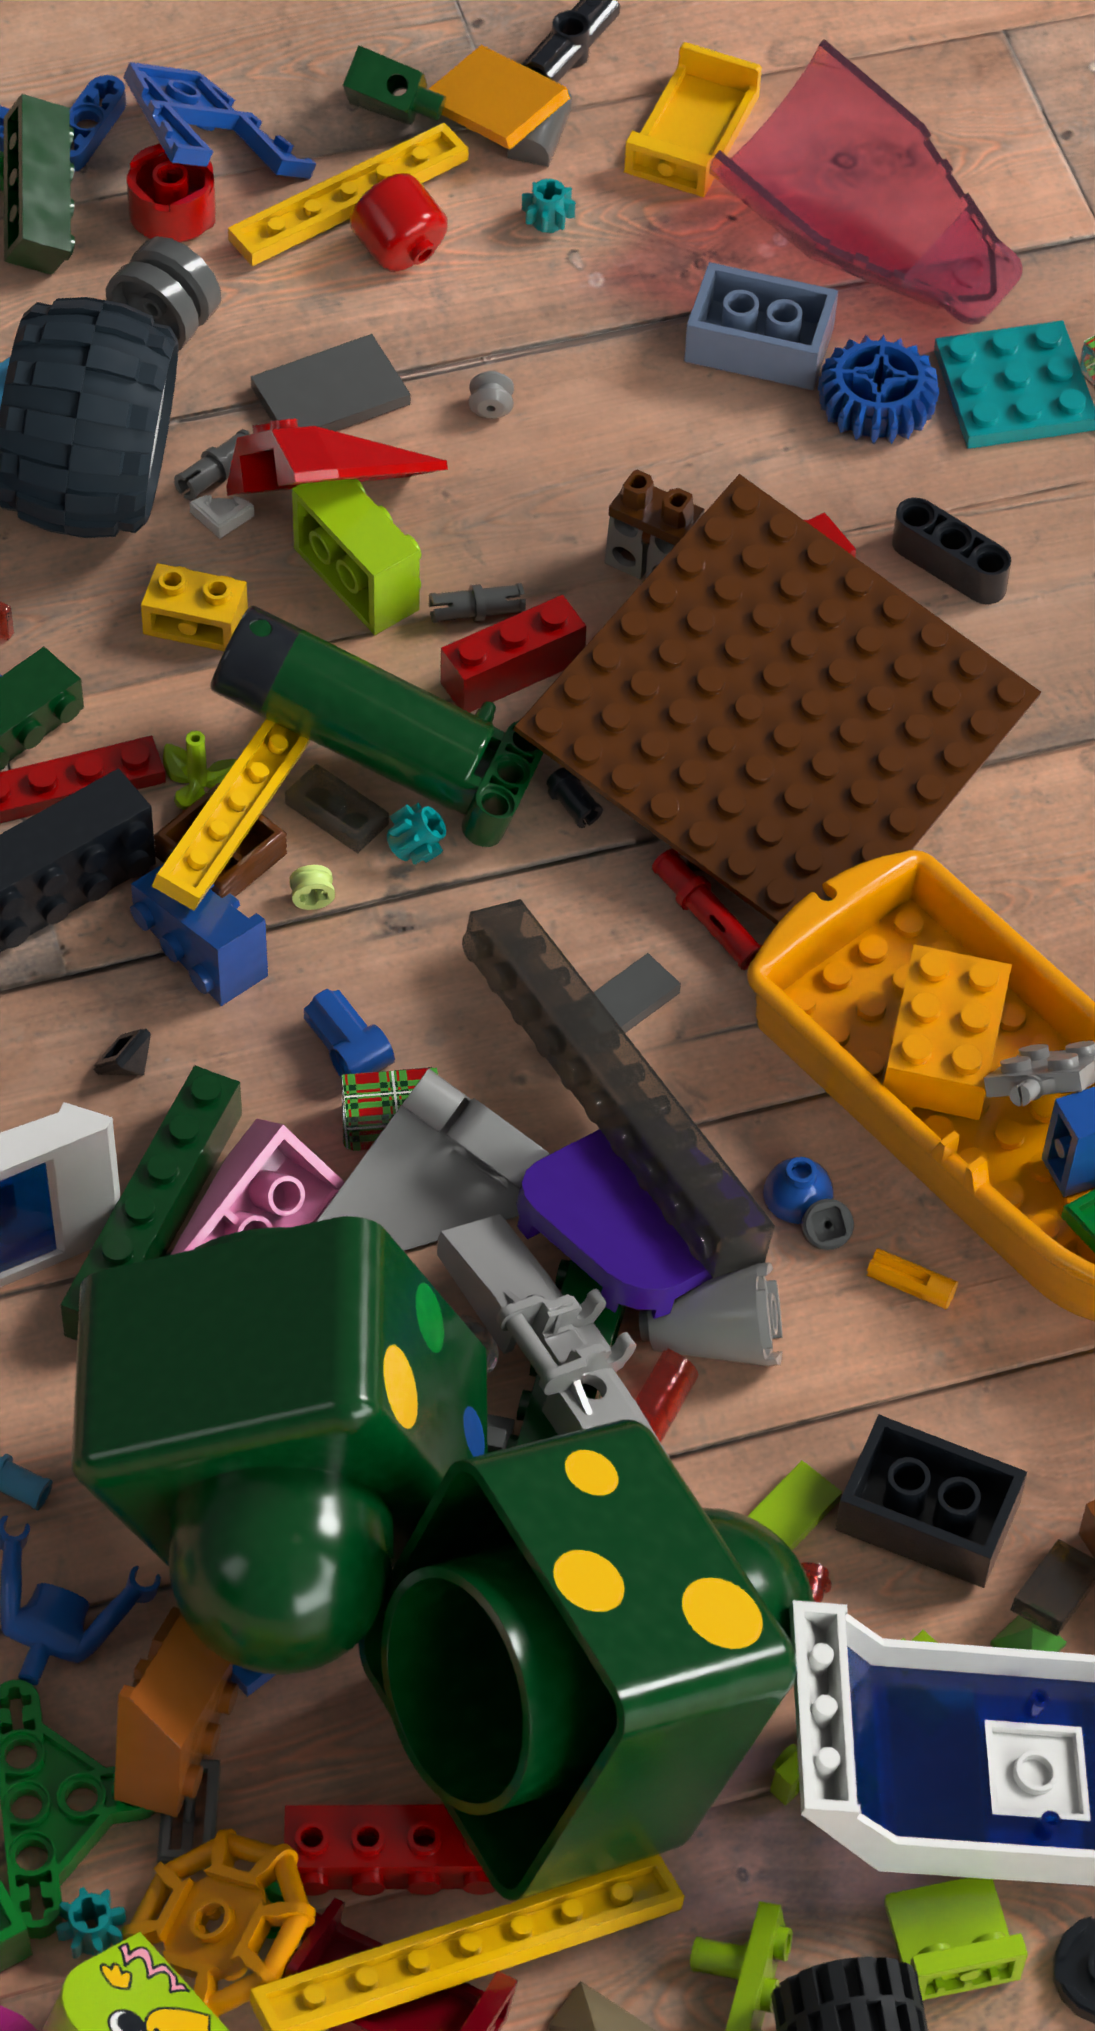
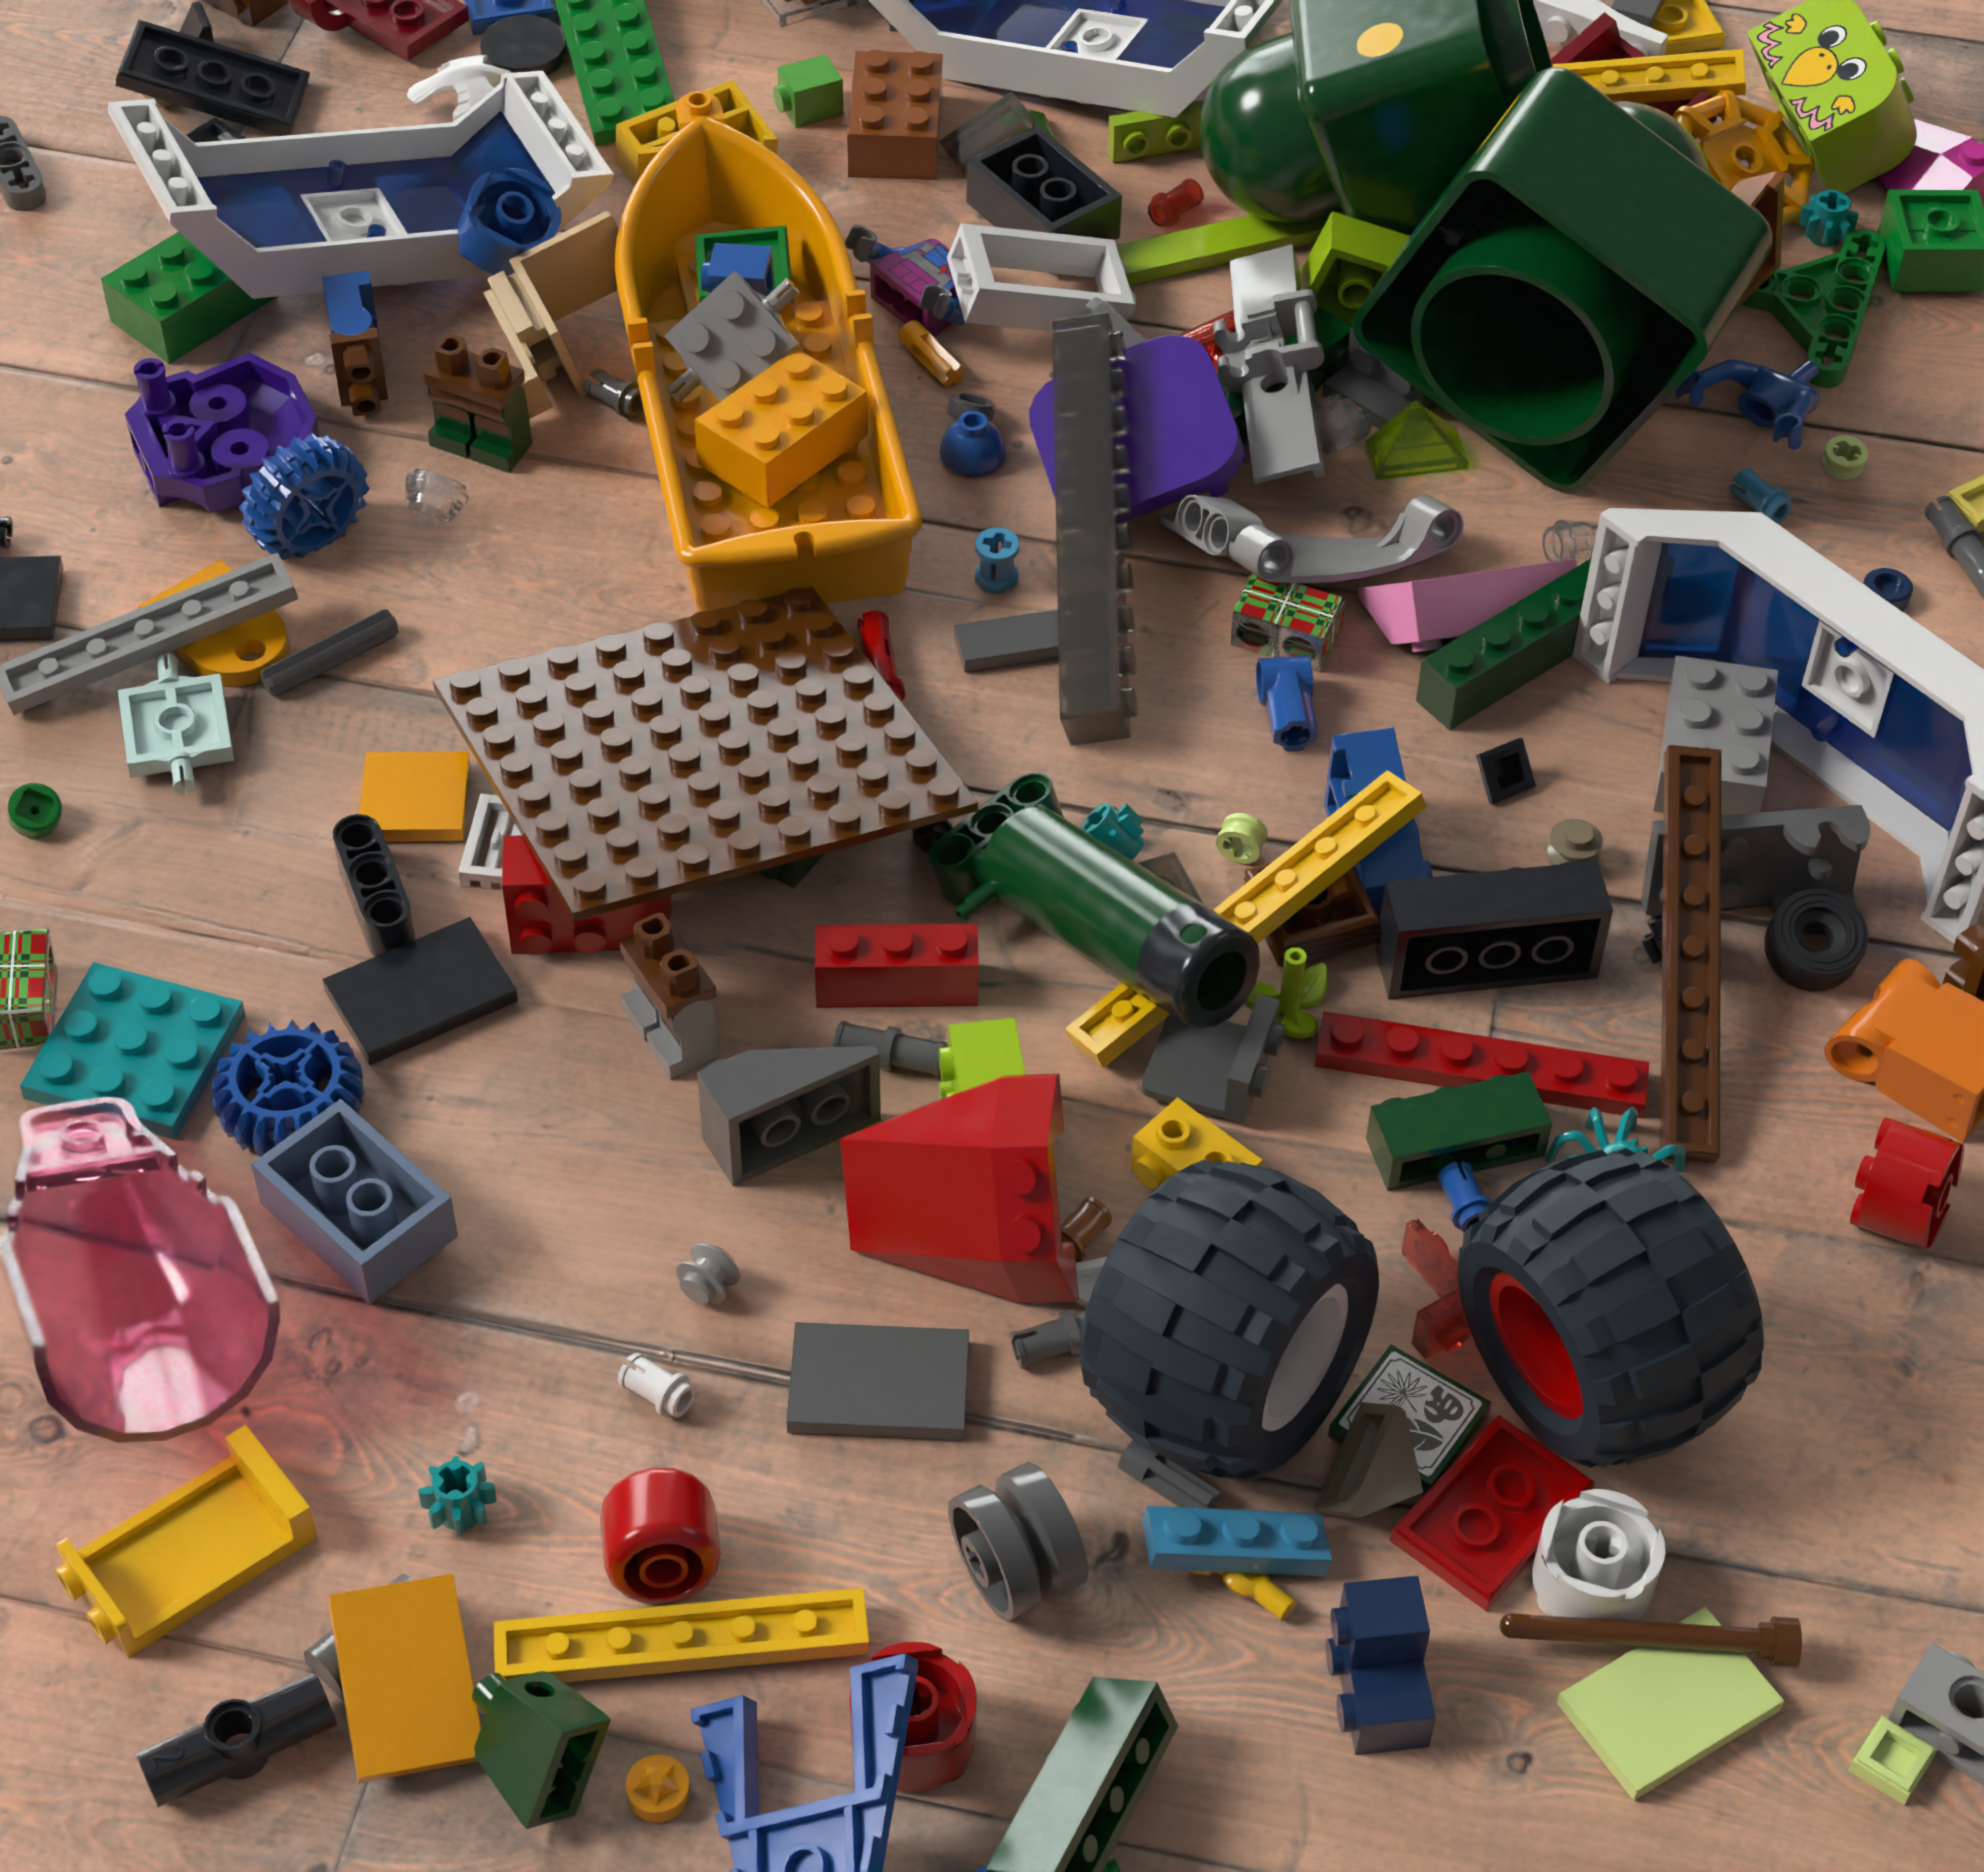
camera: 150 degrees left, 5 degrees down
(29, 1005) = (1574, 842): none -> dark tan wheel
(206, 710) = (1216, 1066): none -> dark grey bracket
(256, 523) = (1085, 1225): none -> dark orange pin
(307, 124) = (657, 1788): none -> light orange tile
(474, 321) = (666, 1391): none -> white pin
(516, 497) = (785, 1104): none -> dark grey slope
(694, 1055) = (987, 549): none -> dark azure bush
(862, 496) = (420, 990): none -> black tile
(883, 1398) = (1027, 306): none -> white window
(972, 1343) = (910, 280): none -> torso
(1006, 635) = (417, 794): none -> light orange tile

